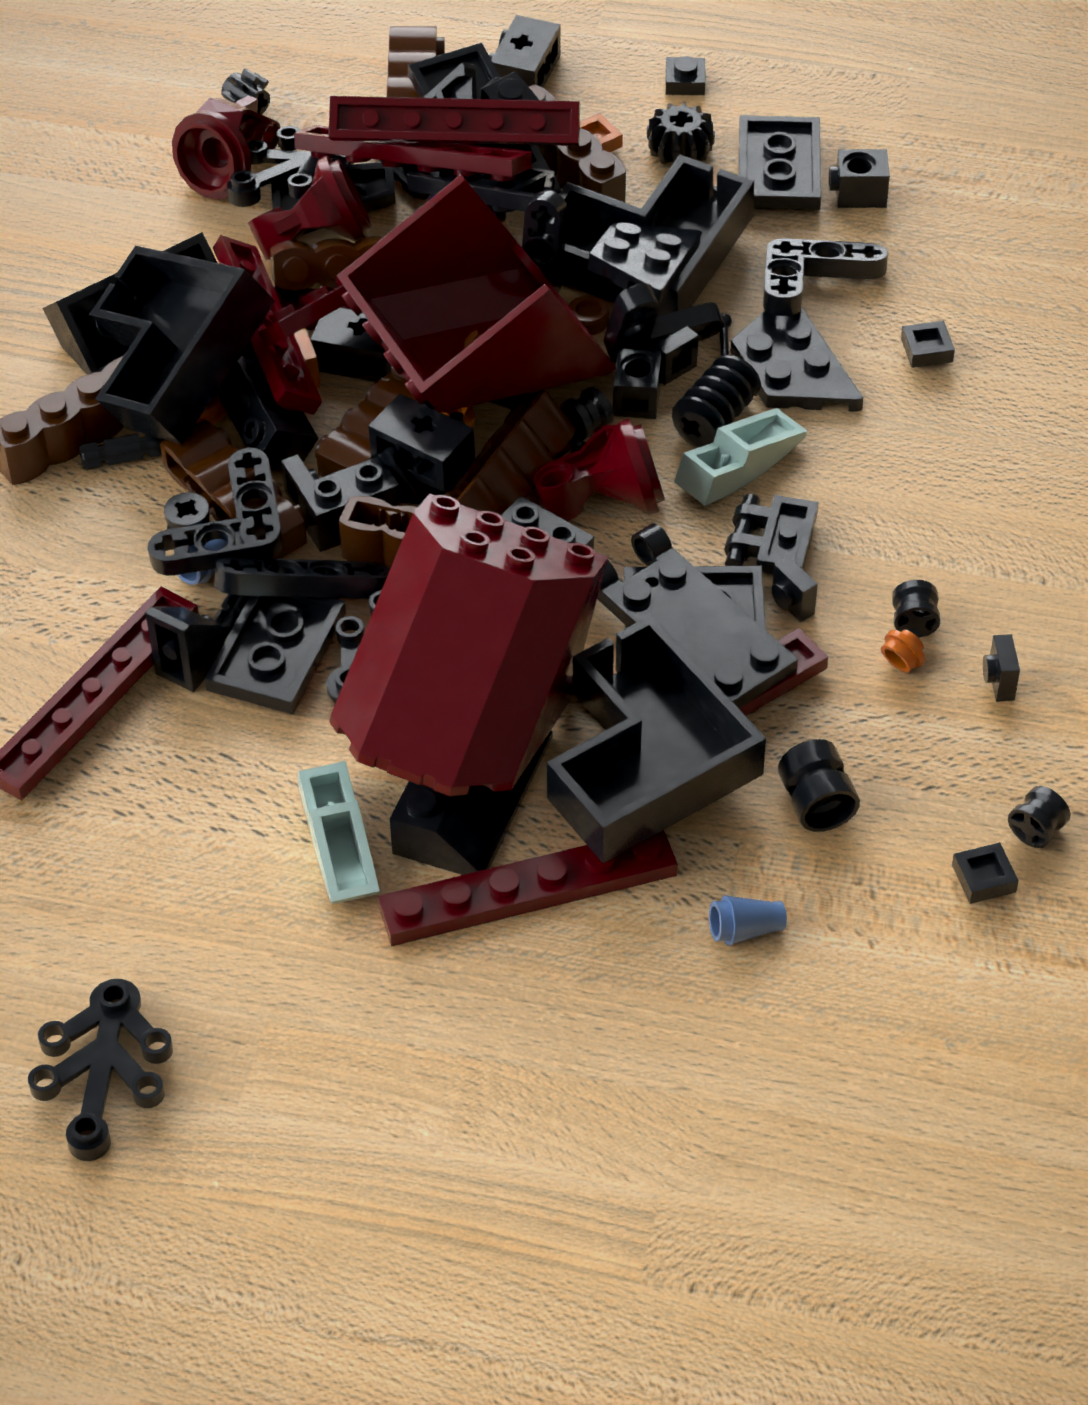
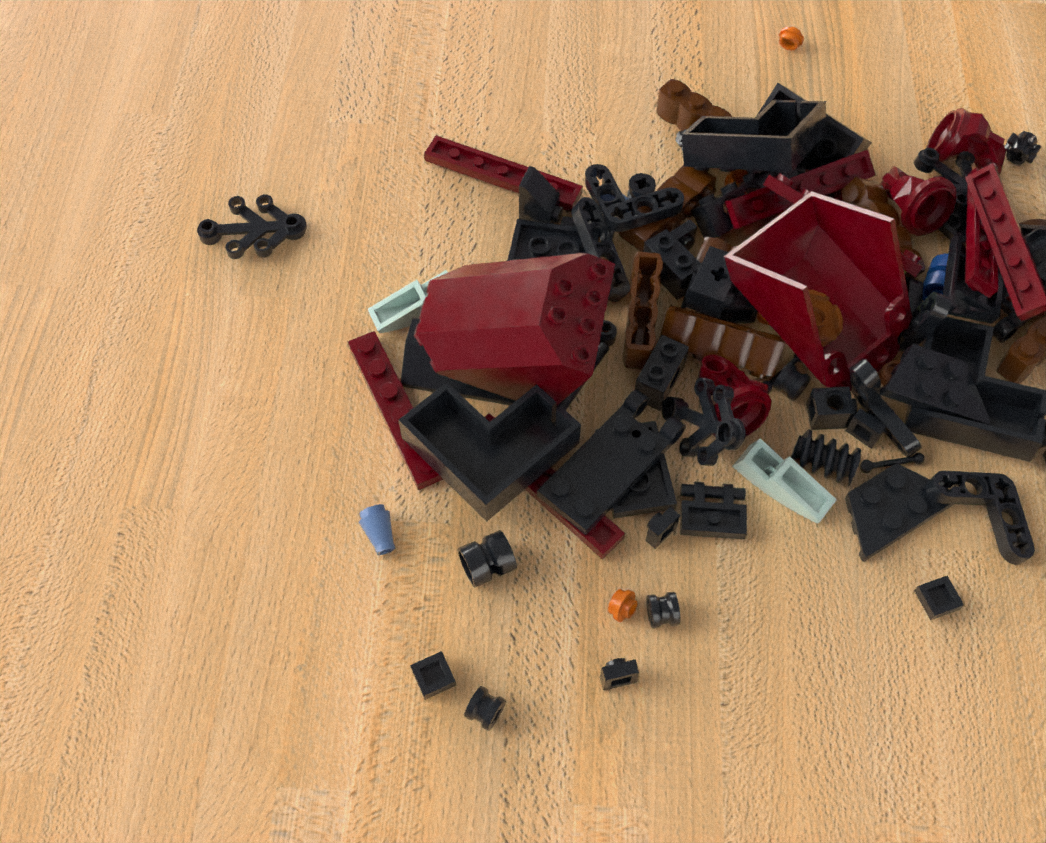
camera: 80 degrees right, 10 degrees up
(660, 489) = (729, 432): none -> black plant

